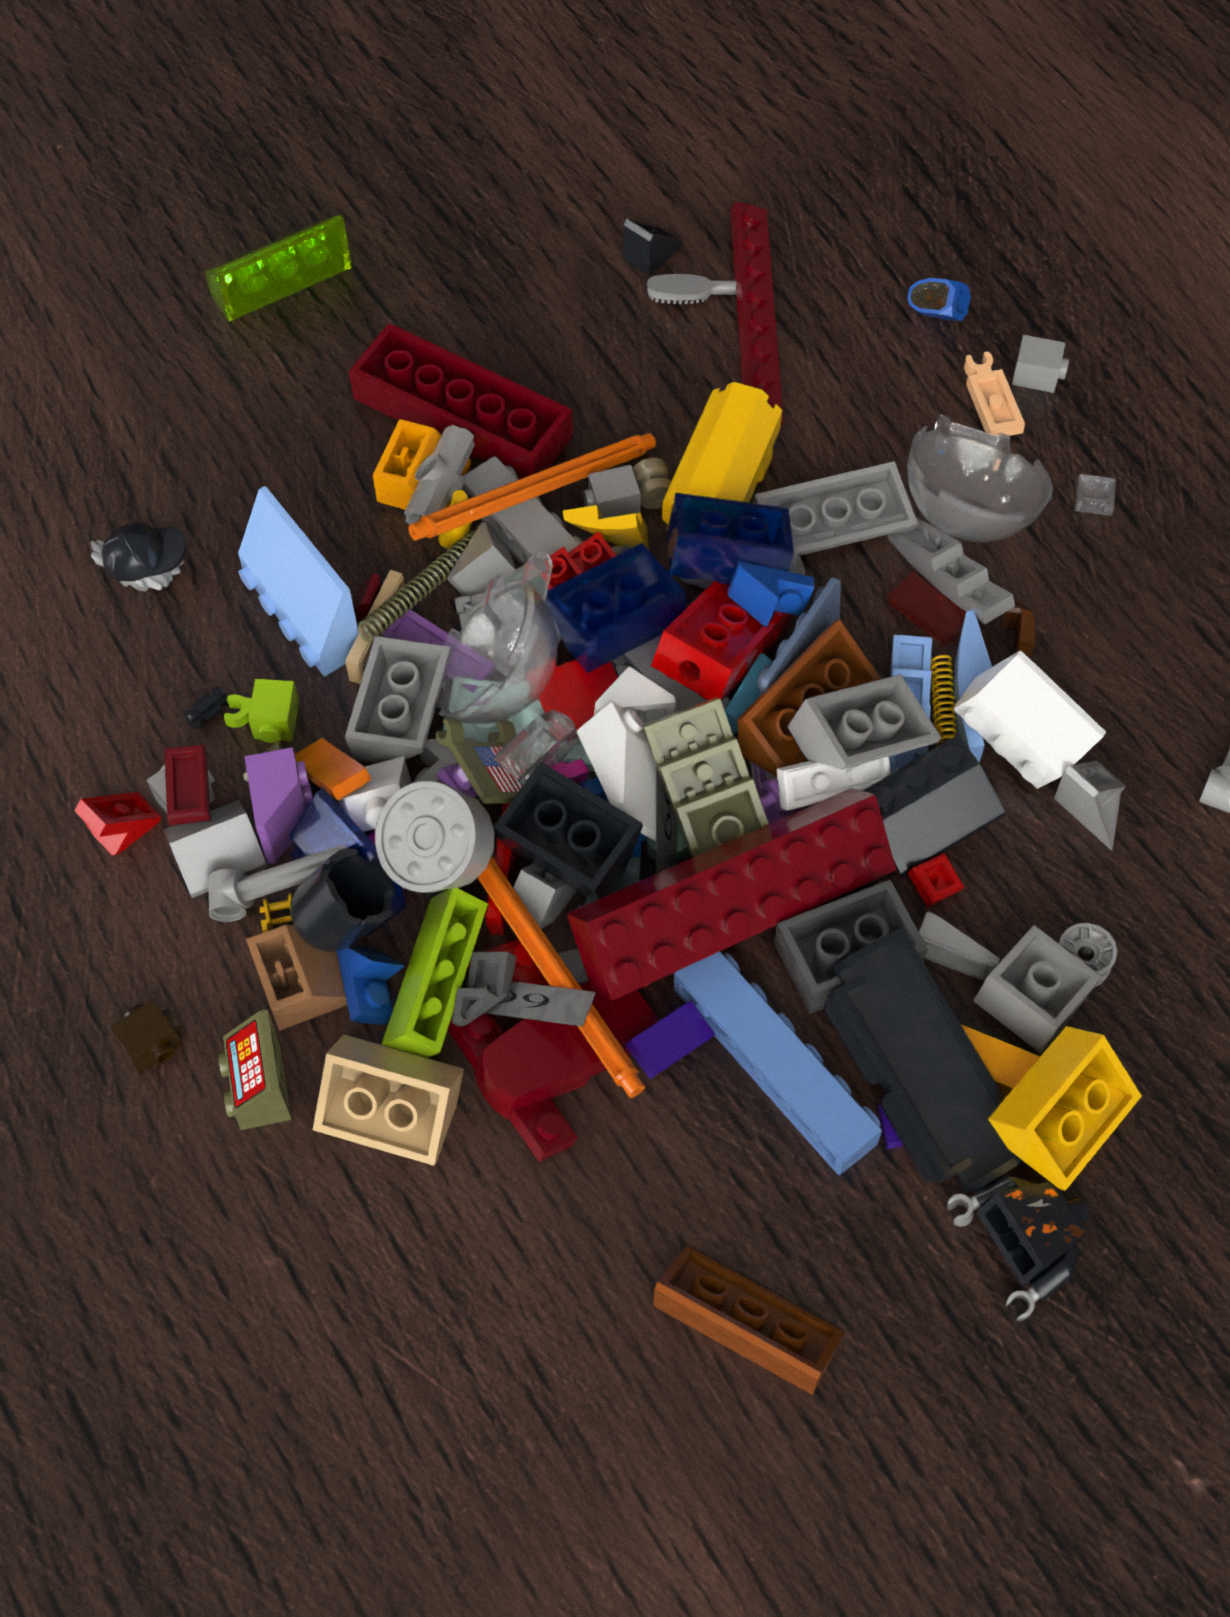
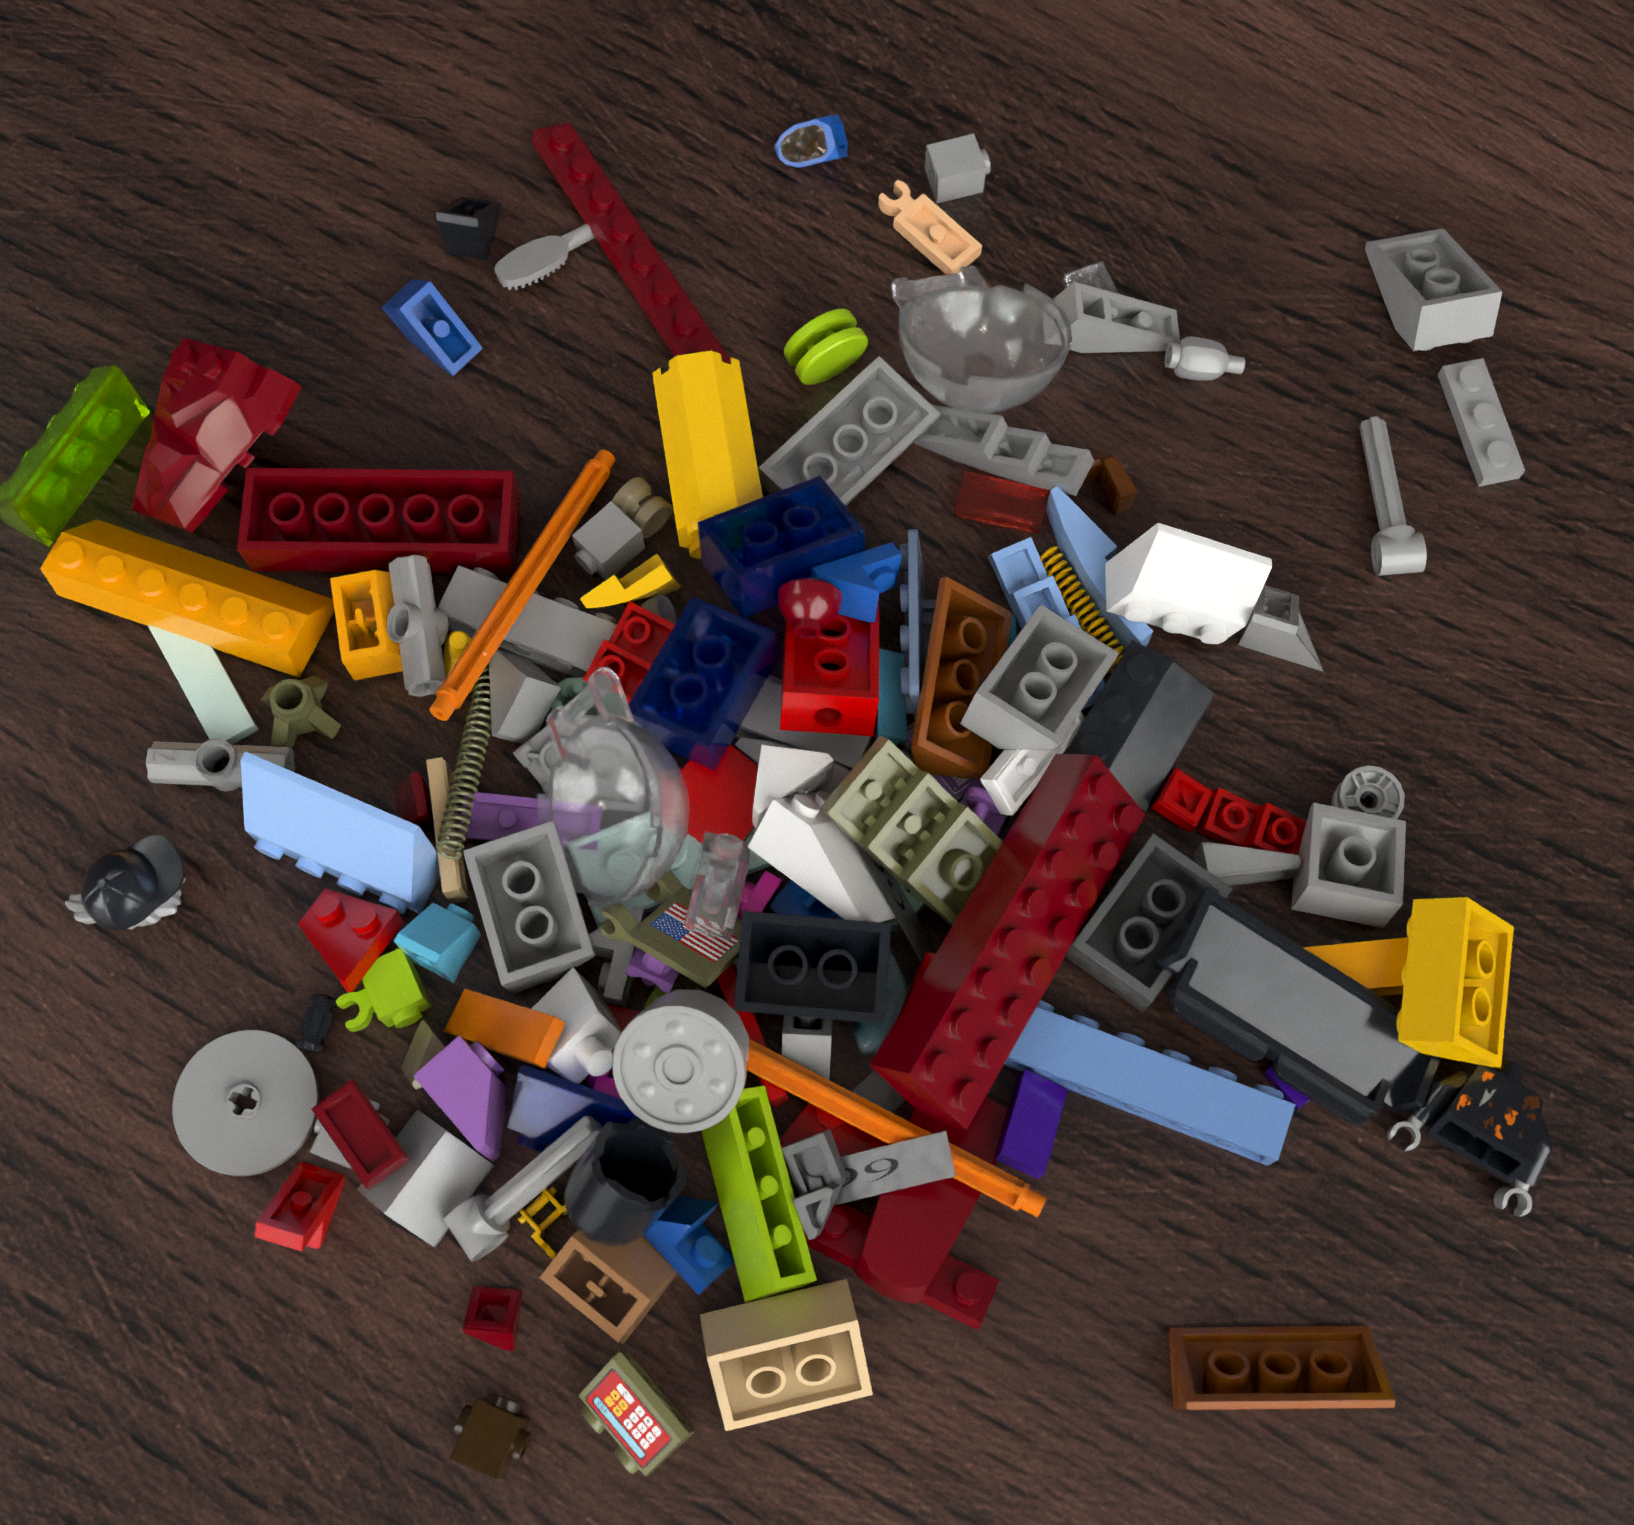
camera: 30 degrees left, 10 degrees up
(131, 706) = (259, 1138): none -> light grey piece
(201, 963) = (494, 1316): none -> dark red slope
(233, 498) = (195, 762): none -> light grey piece
(265, 656) = (349, 933): none -> red wing
(277, 440) = (206, 686): none -> light aqua tile
(299, 392) = (188, 595): none -> light orange slope
(322, 692) = (440, 940): none -> medium azure slope
(325, 499) = (298, 710): none -> olive rock
(383, 277) = (202, 426): none -> dark red wedge
(580, 298) = (432, 325): none -> blue slope
(722, 585) = (809, 605): none -> dark red brick
(857, 436) = (825, 346): none -> lime head
(973, 918) = (1249, 825): none -> red slope
(1094, 523) = (1115, 322): none -> light grey slope
(1152, 582) = (1201, 359): none -> light grey plant

